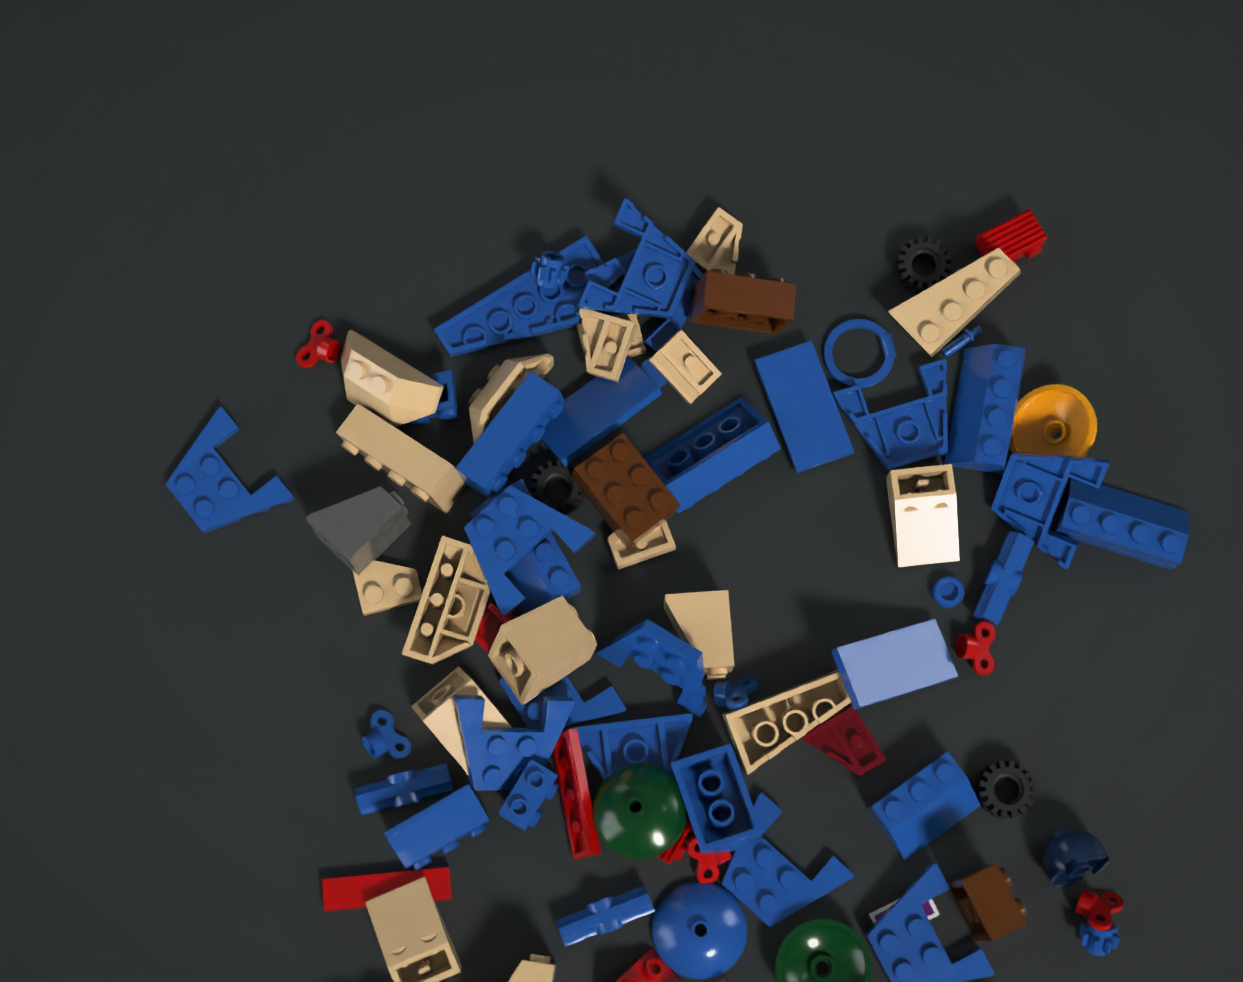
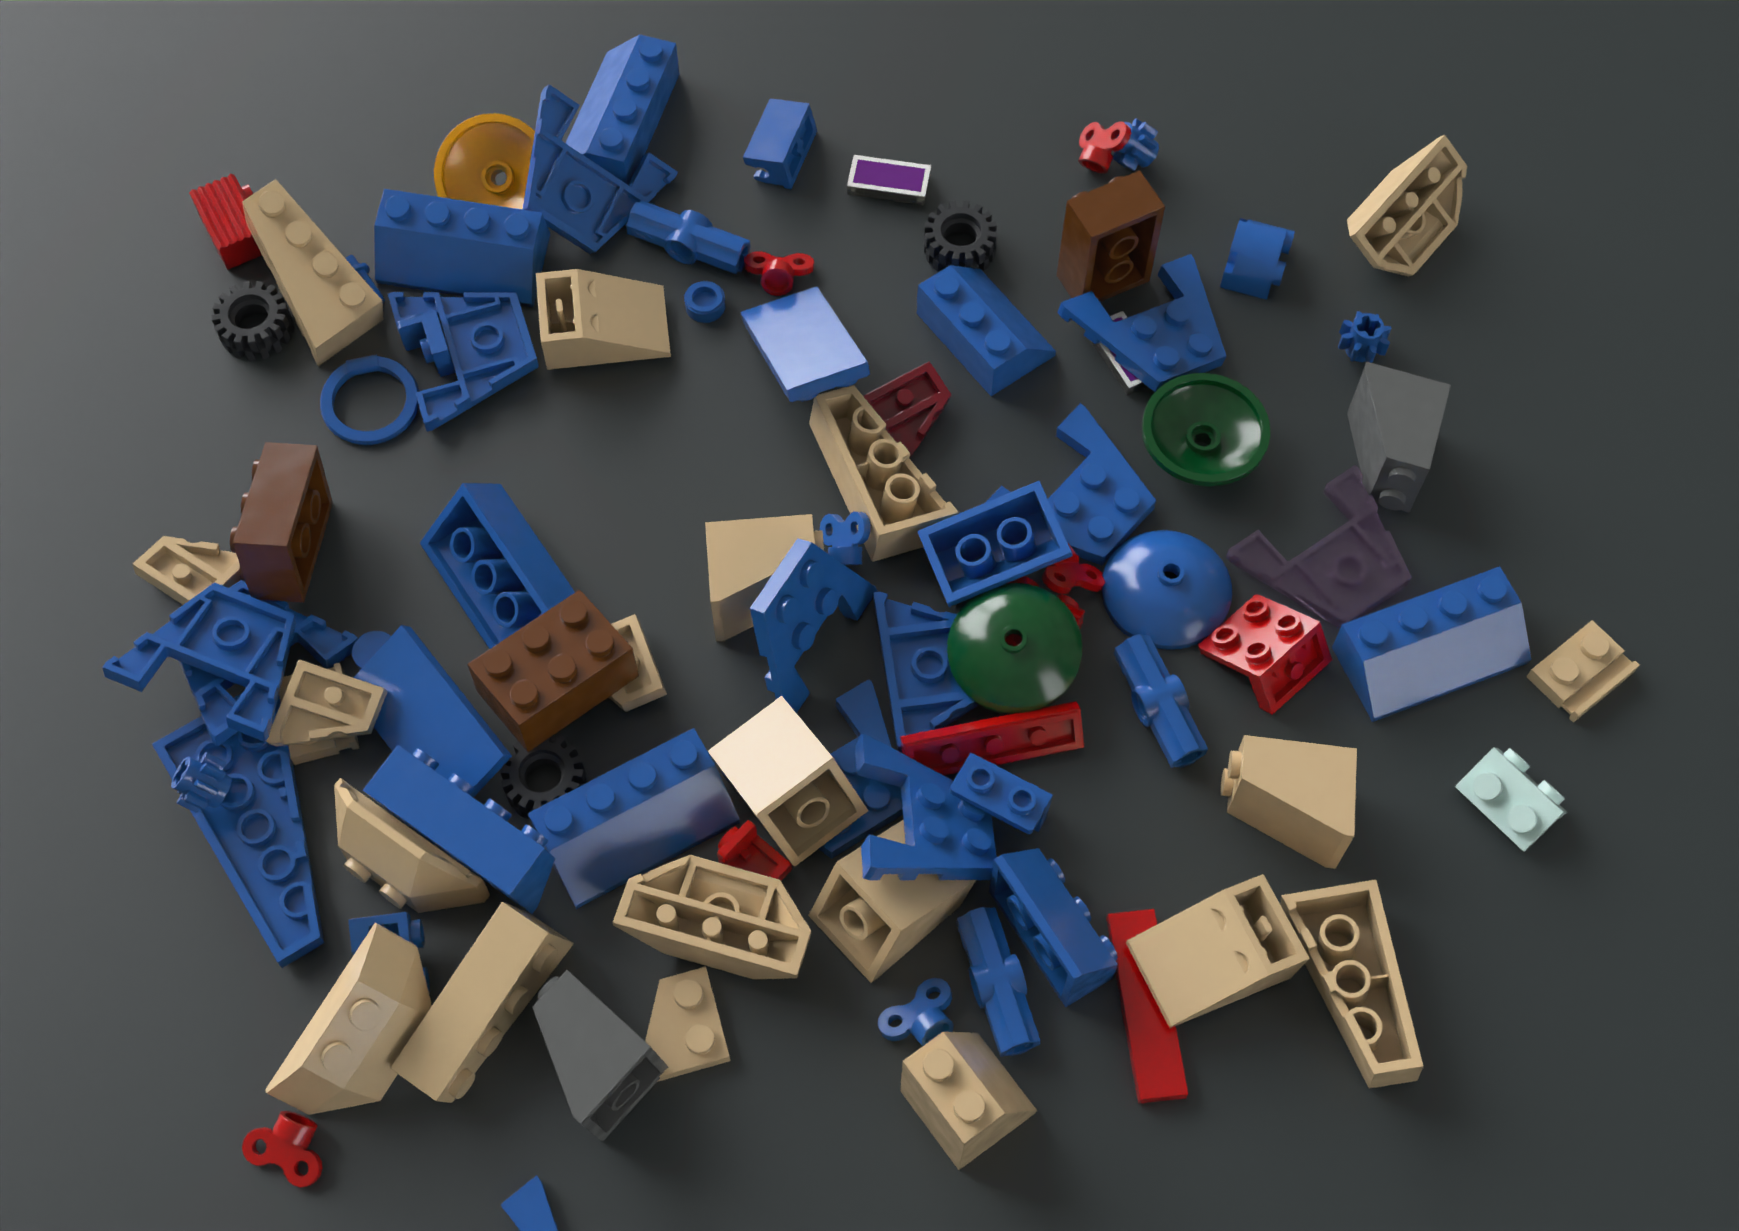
camera: 90 degrees left, 15 degrees down
(325, 764) = (963, 1094): none -> tan slope
(509, 531) = (610, 822): blue wing -> none
(684, 366) = (370, 607): tan plate -> none
(803, 407) = (433, 461): blue tile -> none
(900, 394) = (427, 333): none -> blue bracket
(1065, 735) = (889, 179): none -> tile
(1072, 856) = (1039, 166): dark blue cylinder -> none
(1096, 649) = (781, 142): none -> hinge

